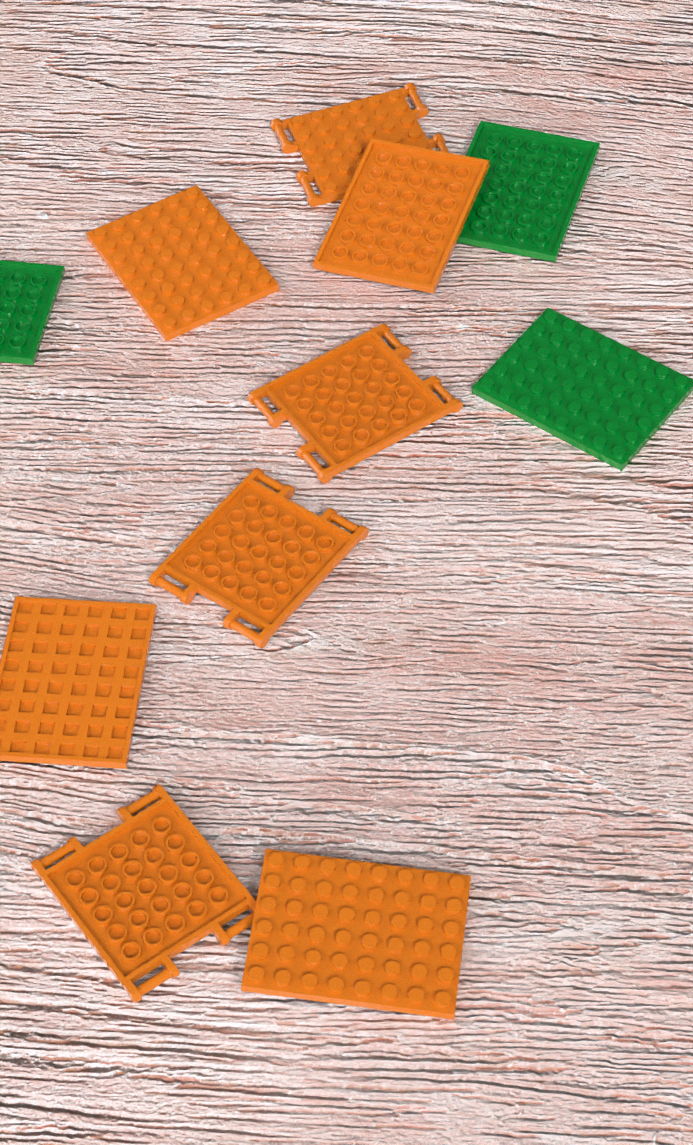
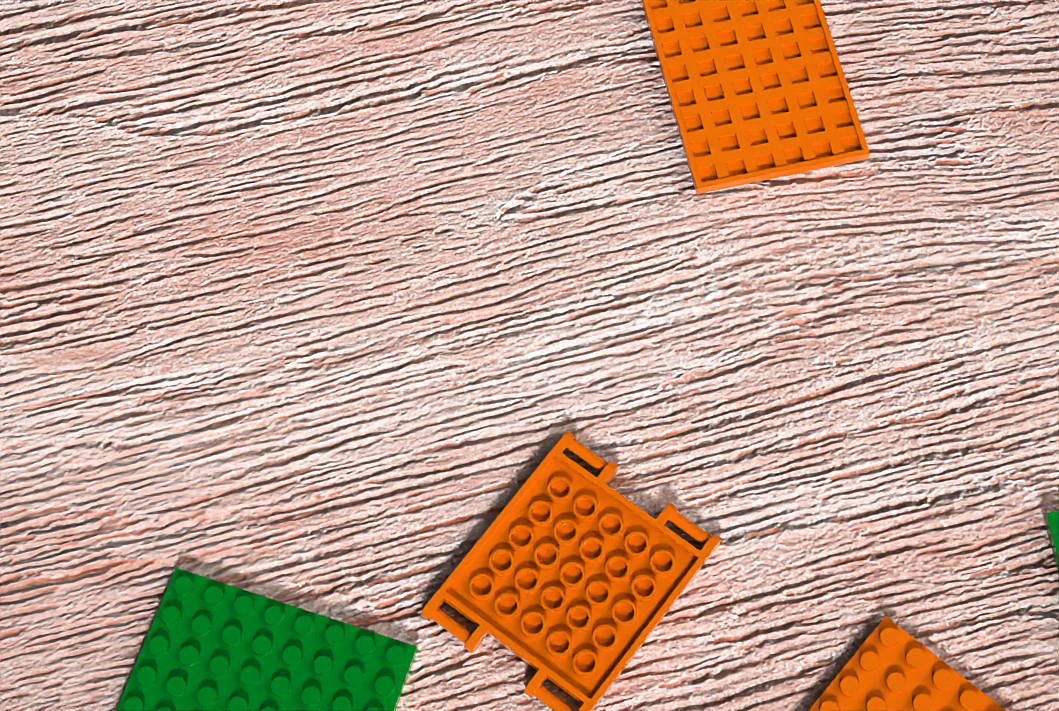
camera: 160 degrees right, 15 degrees up
(258, 556) = (603, 300): orange plate -> none

